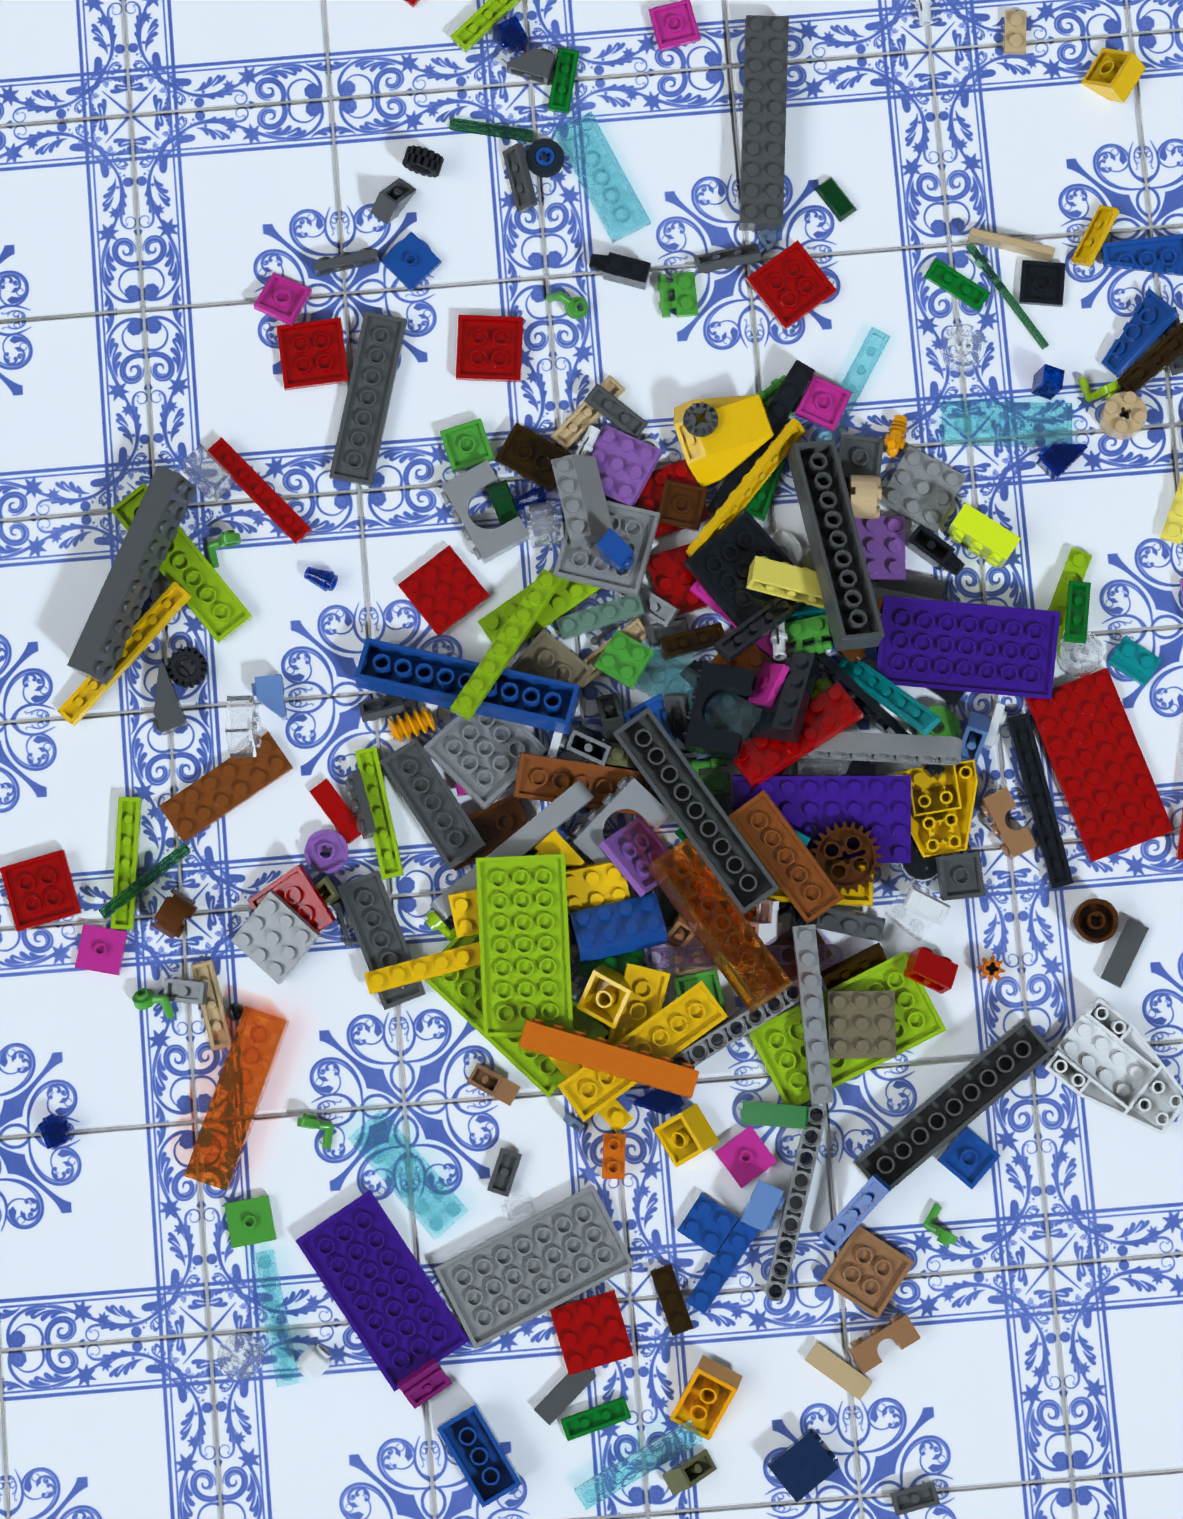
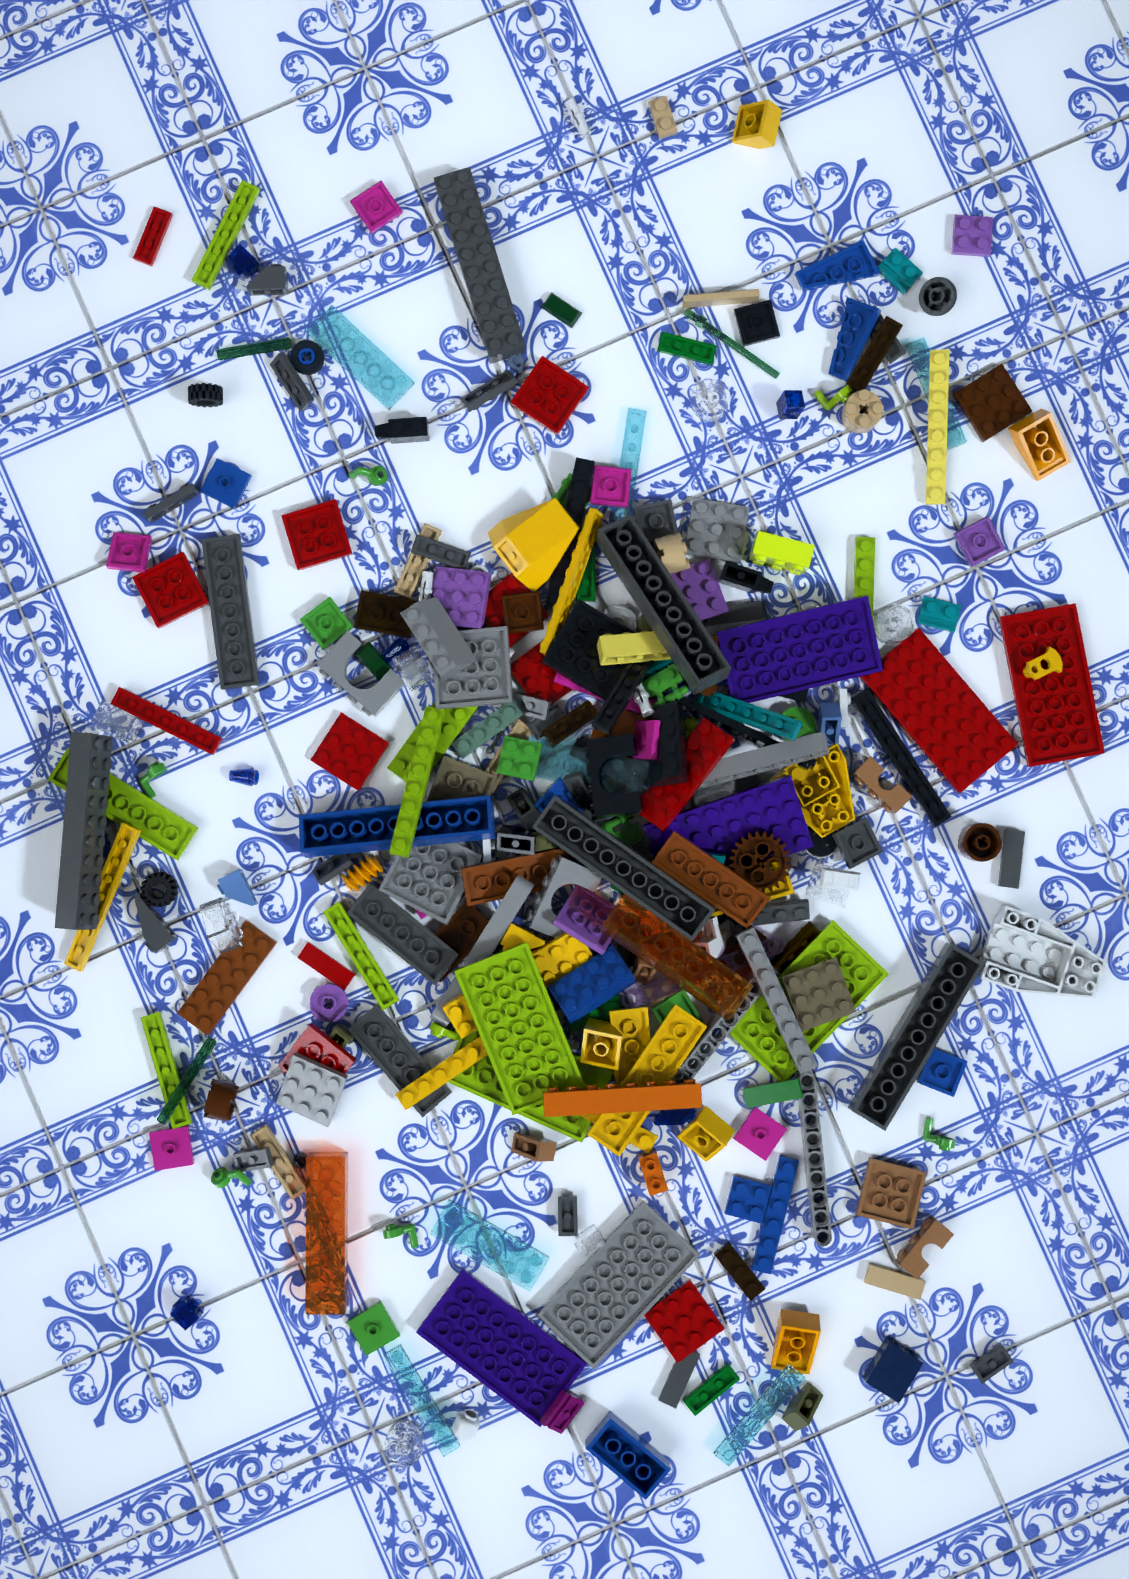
camera: 20 degrees left, 5 degrees up
(40, 890) = (103, 1117): red plate -> none
(338, 907) = (354, 1045): dark grey hinge -> none
(360, 804) = (343, 955): dark grey plate -> none
(392, 200) = (191, 437): dark grey slope -> none
(563, 80) = (299, 286): green tile -> none
(575, 1124) = (607, 1155): sand blue tile -> none
(615, 551) = (481, 672): blue slope -> none
(685, 295) = (463, 432): bright green plate -> none
(702, 429) = (518, 543): dark grey gear -> none
(762, 1206) = (788, 1172): medium blue brick -> none
(854, 1212) = (866, 1151): plate -> none
(895, 440) = (680, 497): light orange piece -> none
(931, 969) = (860, 929): red brick -> none
(996, 965) = (913, 913): orange gear -> none
(1005, 424) = (767, 451): clear light blue plate -> none
(1059, 458) = (820, 466): clear blue slope -> none
(1077, 612) = (880, 590): green tile -> none
(1095, 235) = (787, 267): yellow tile -> none

